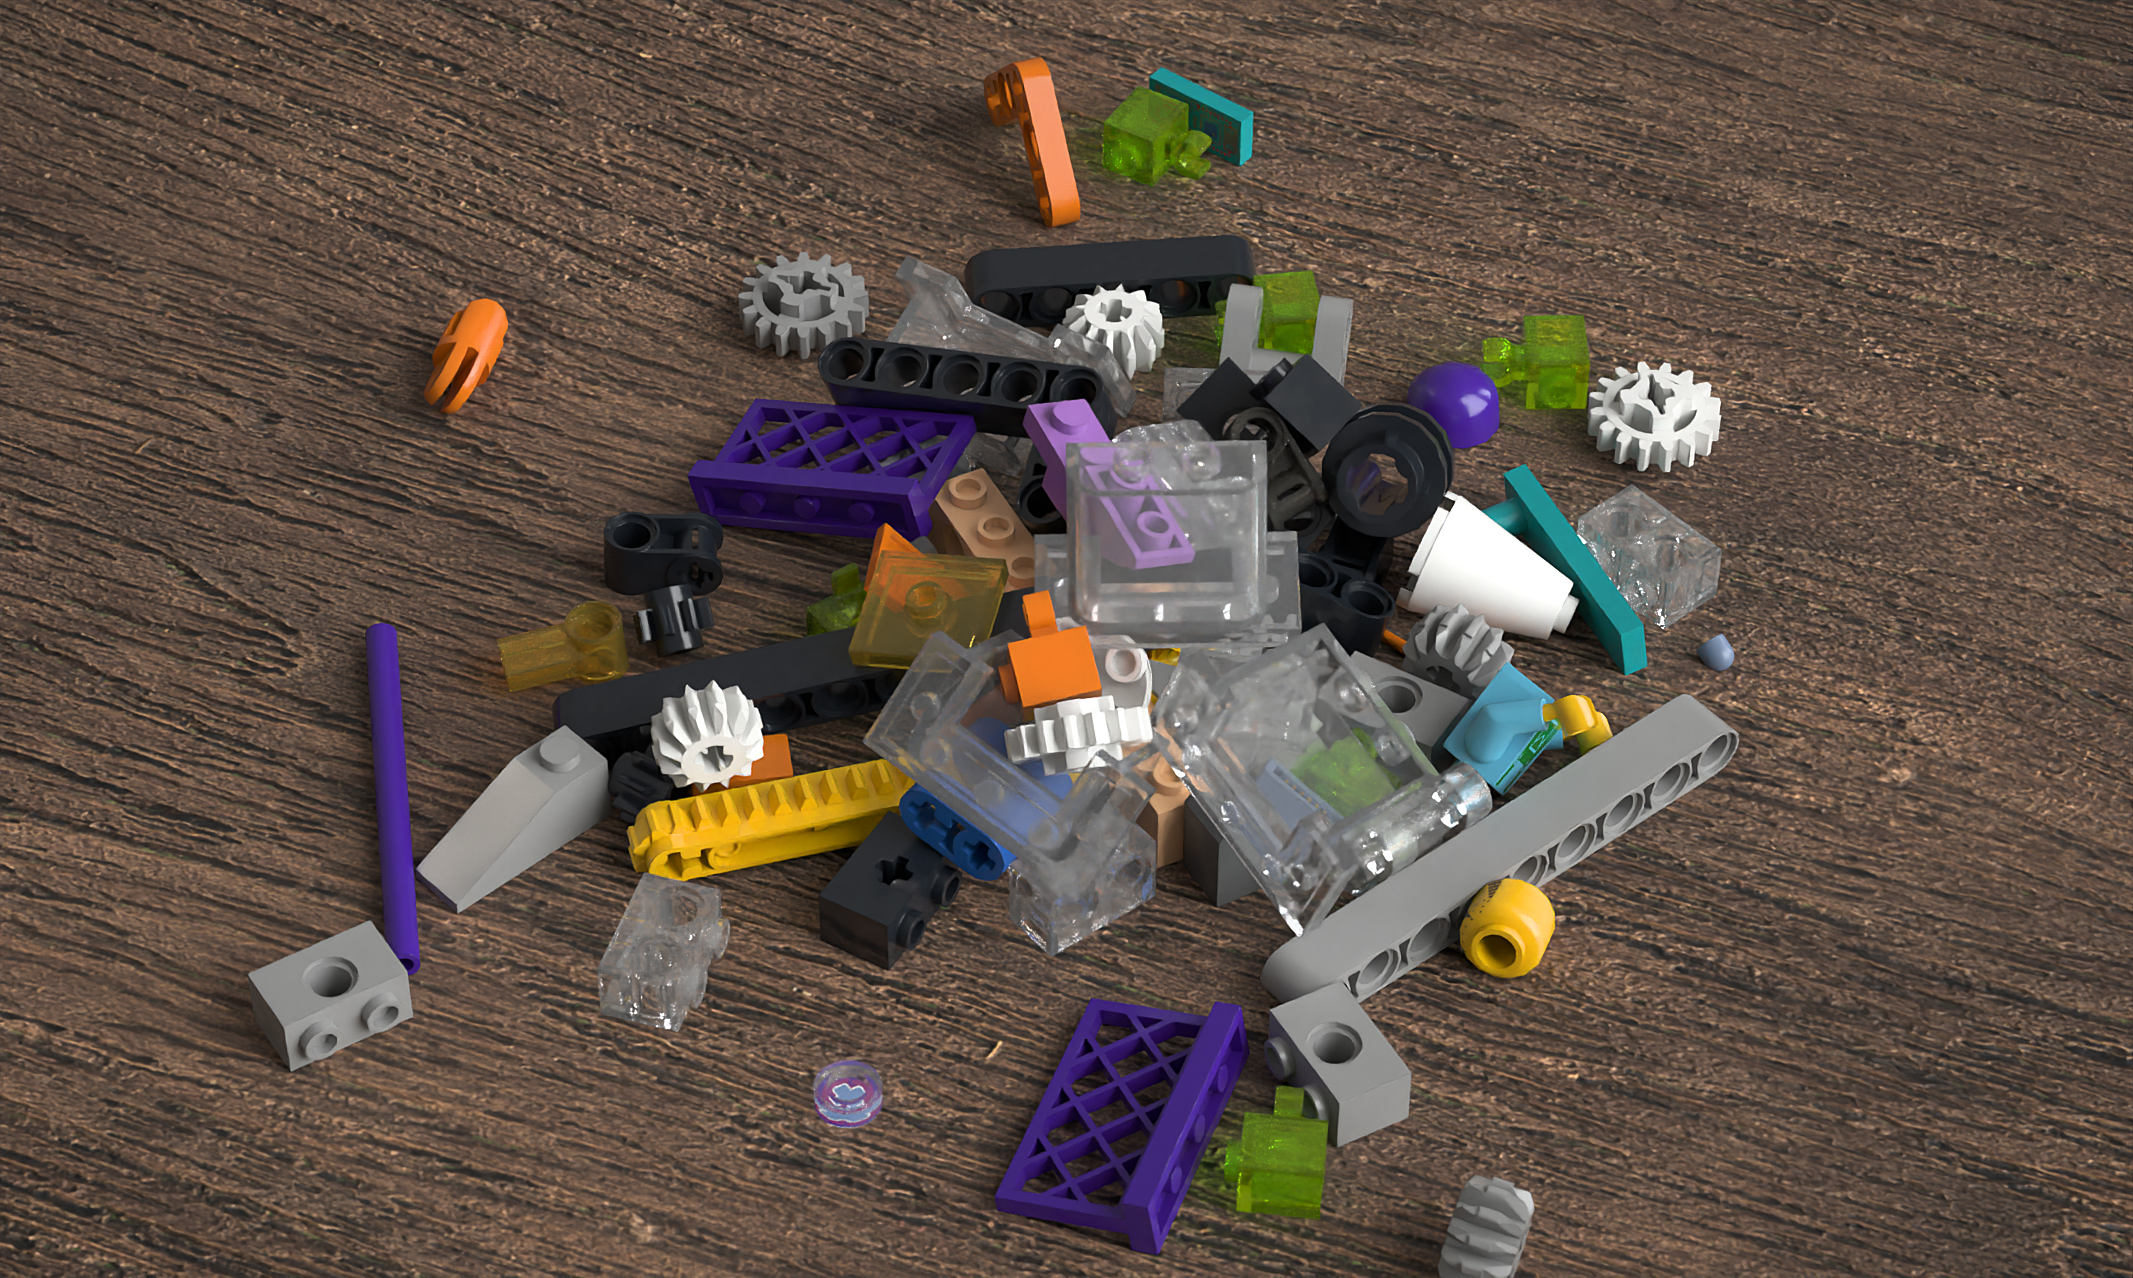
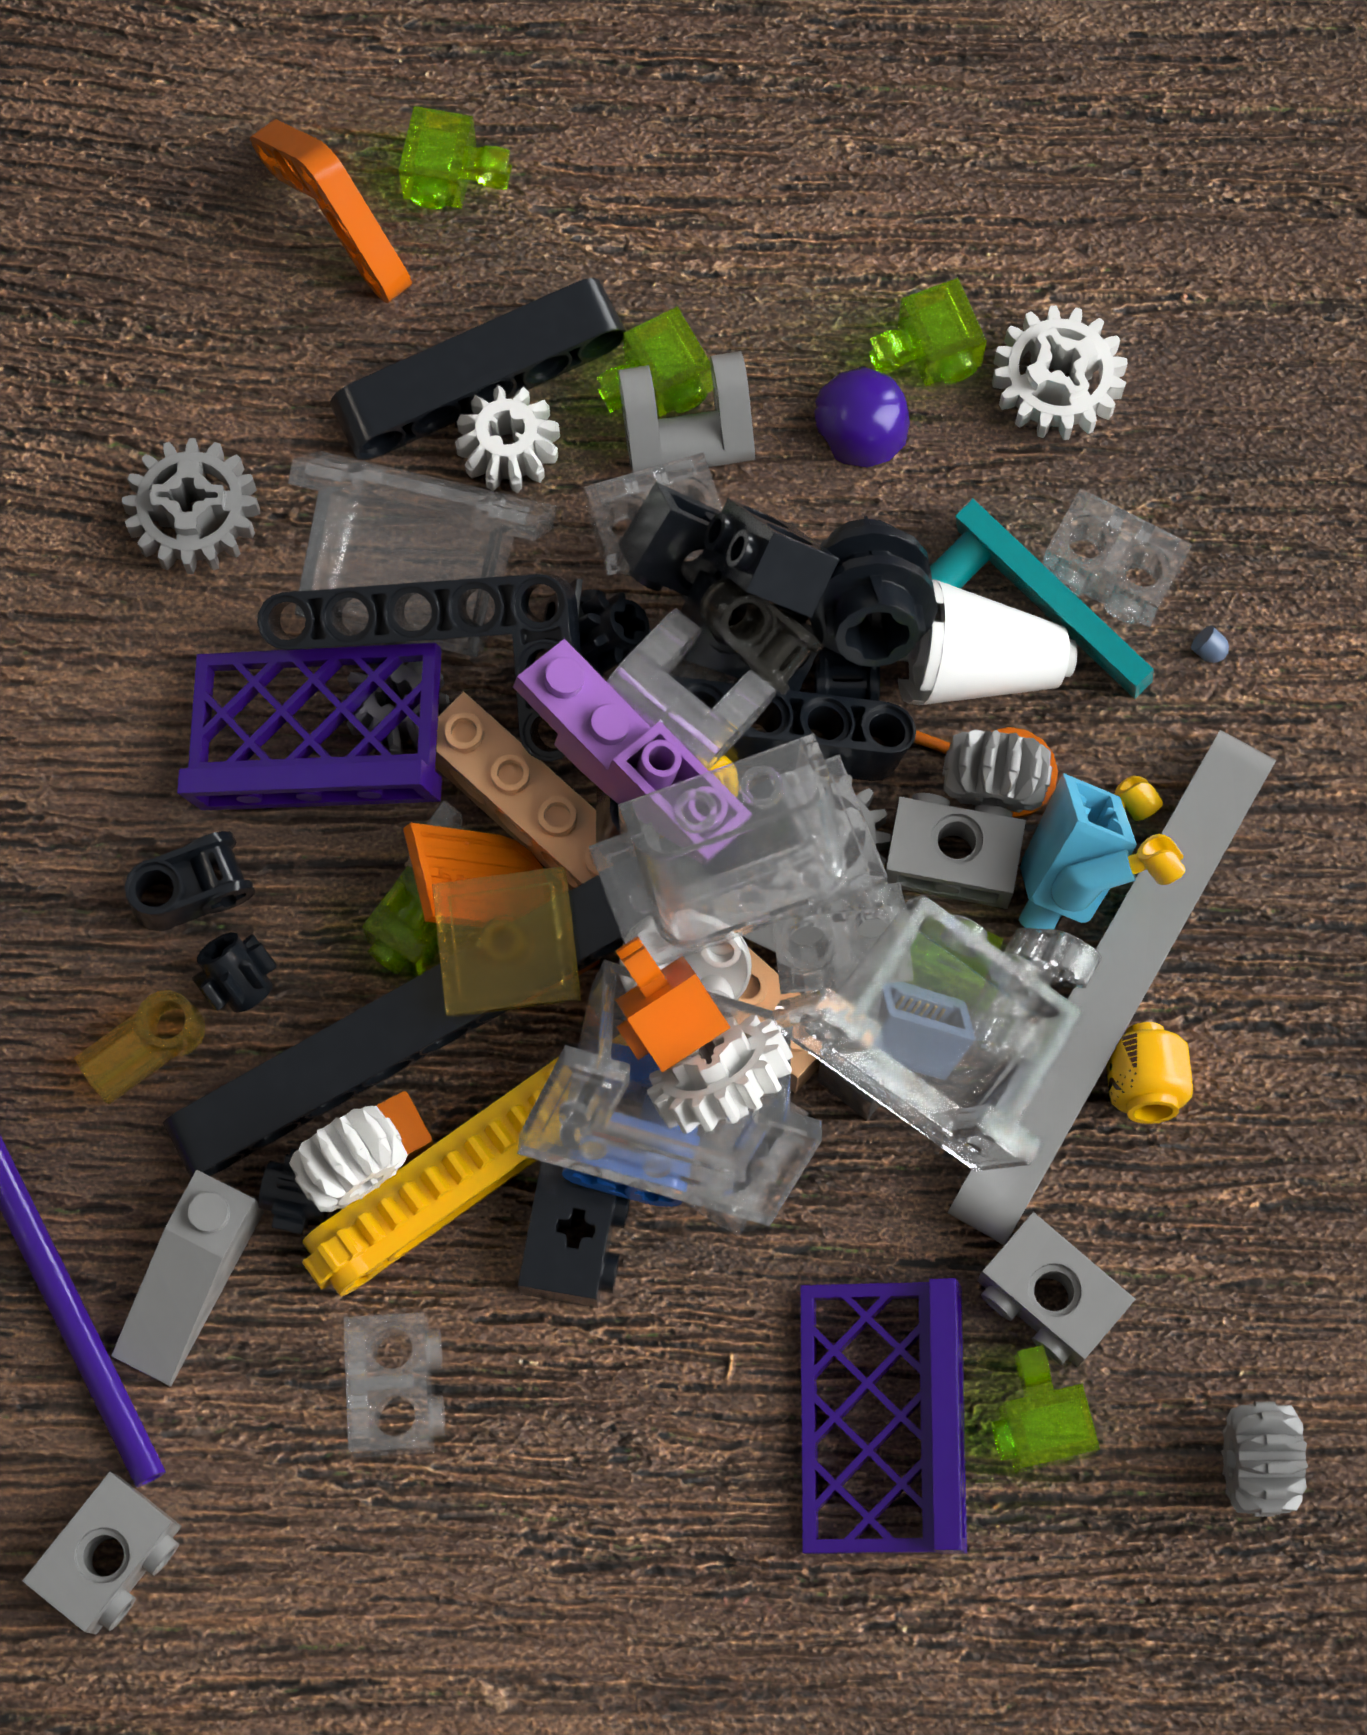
camera: 20 degrees left, 30 degrees up
(848, 1094) = (622, 1476): clear tile -> none
(1212, 114) = (493, 112): teal tile -> none

